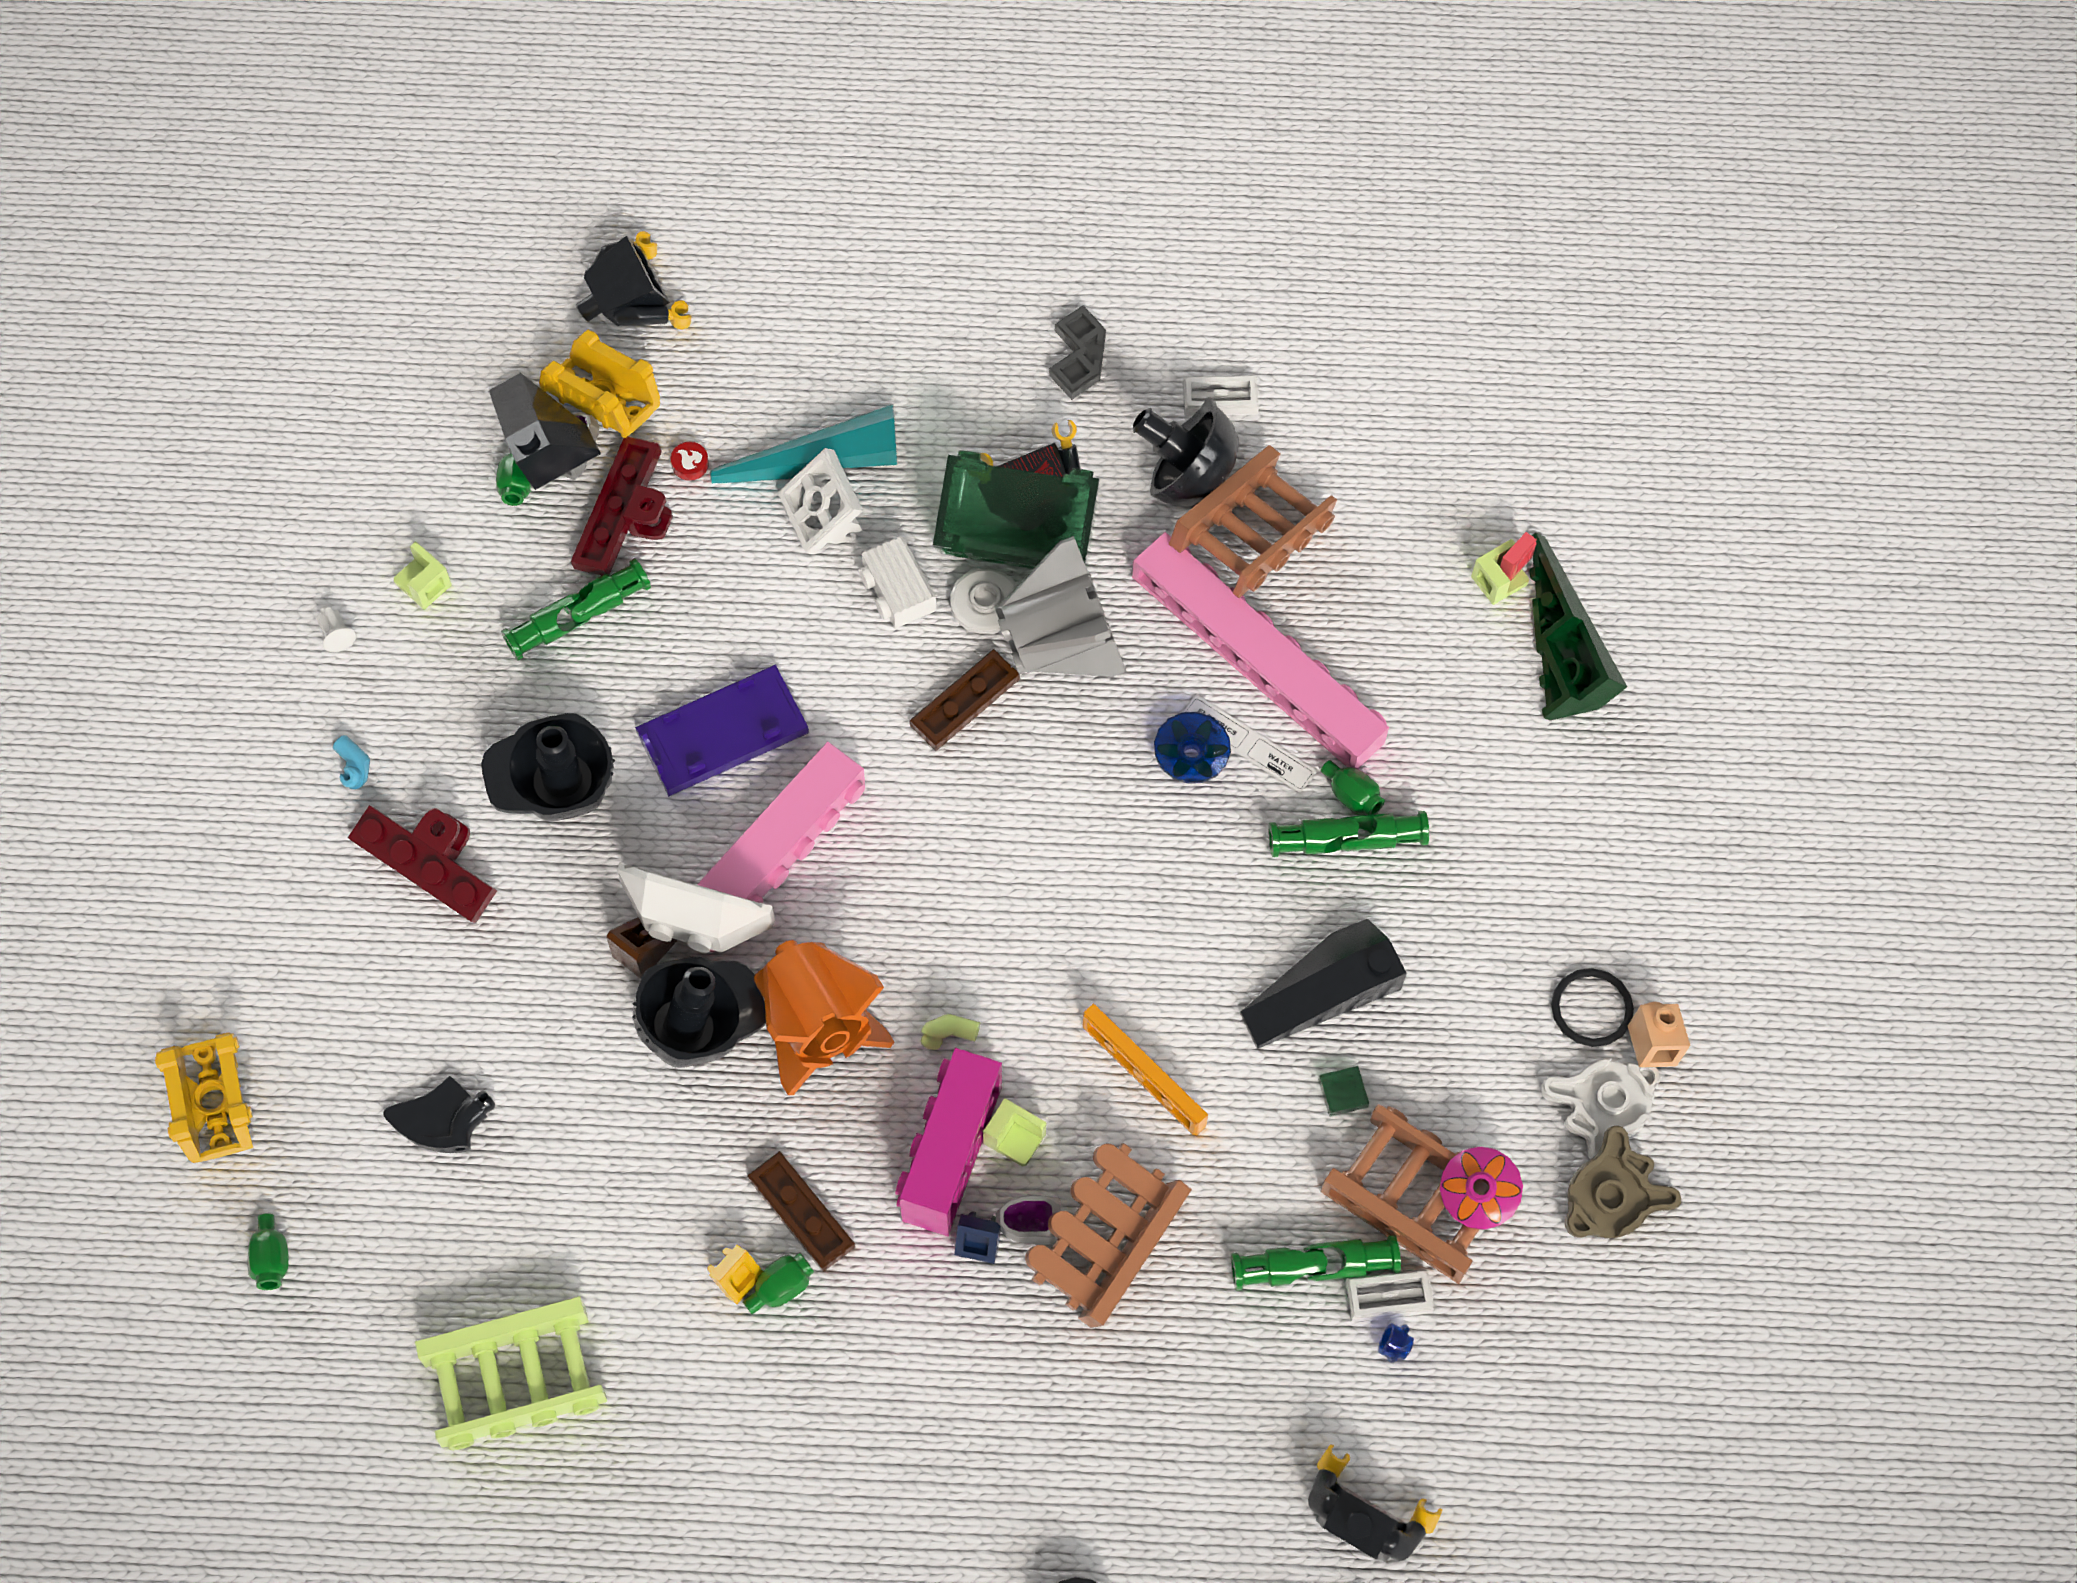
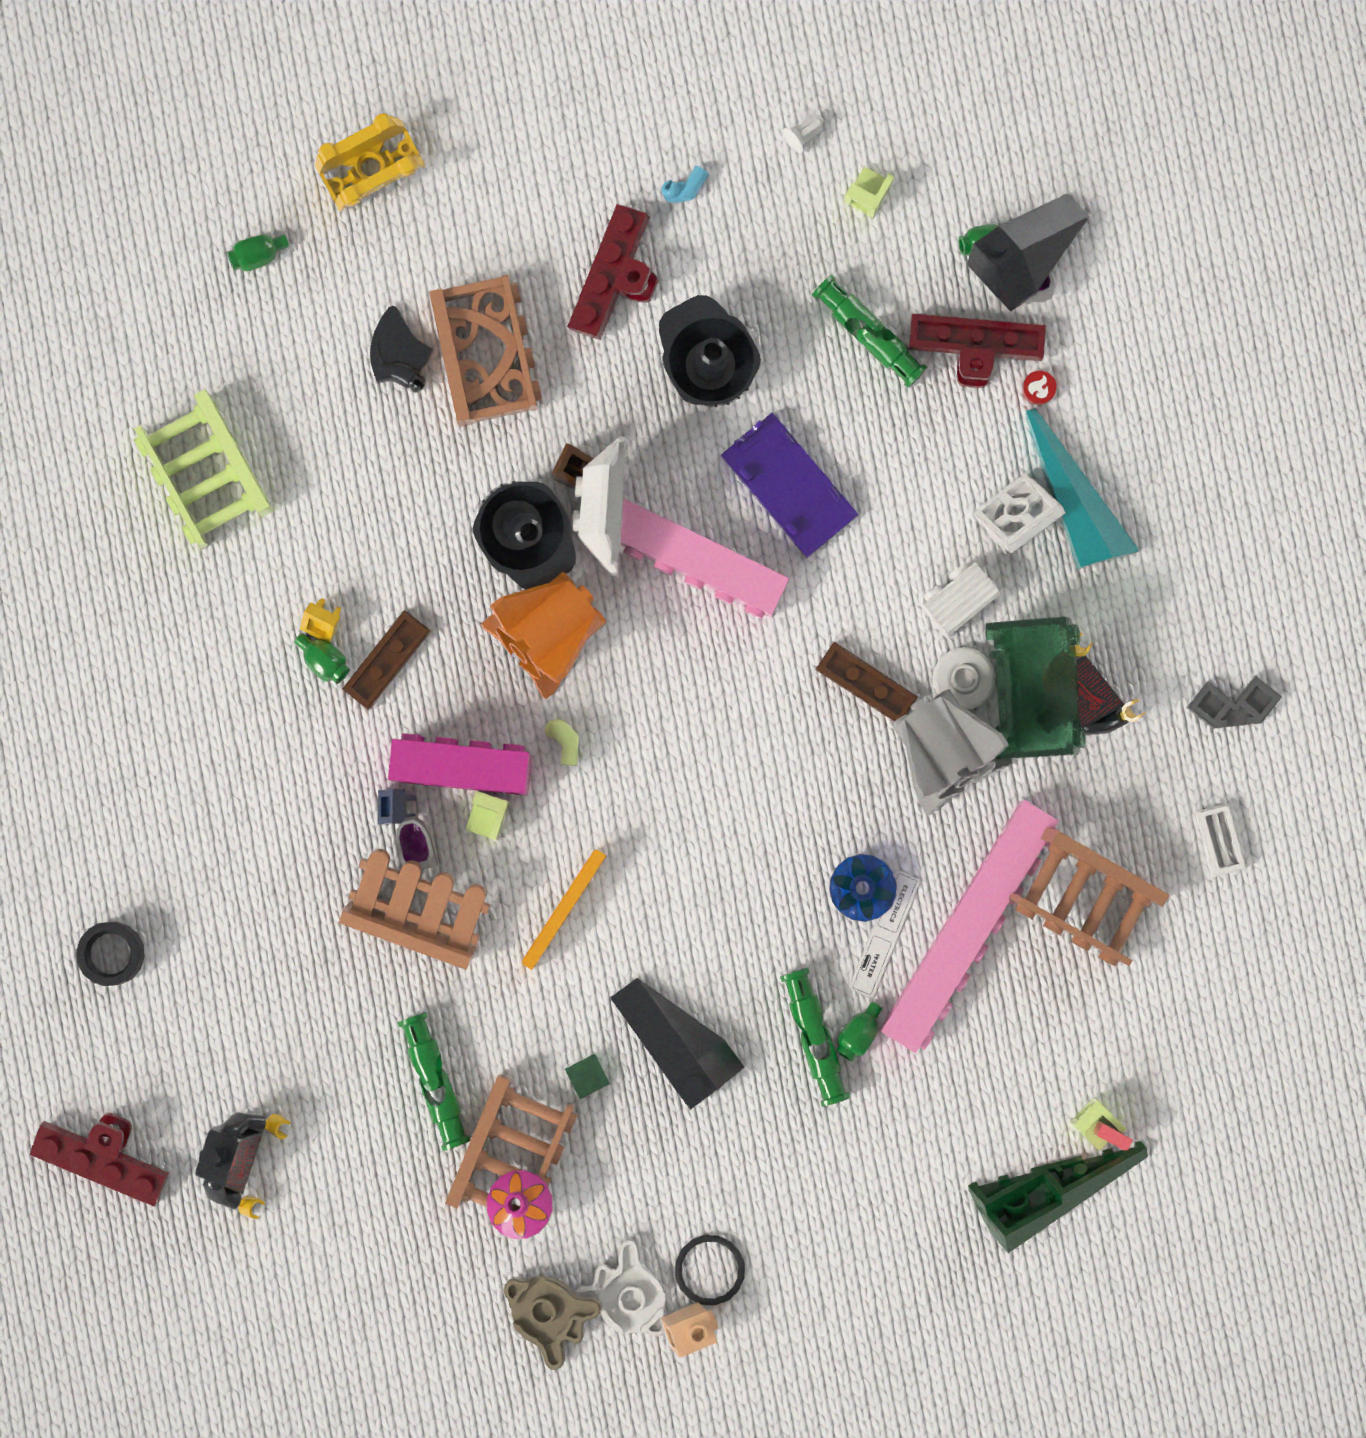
camera: 80 degrees right, 20 degrees up
(454, 1054) = (451, 318): none -> nougat fence
(613, 383) = (1103, 294): yellow piece -> none
(628, 288) = (1196, 284): black torso -> none
(1192, 455) = (1139, 828): black piece -> none
(1355, 1300) = (433, 1173): white tile -> none
(1395, 1342) = (383, 1157): clear blue plate -> none

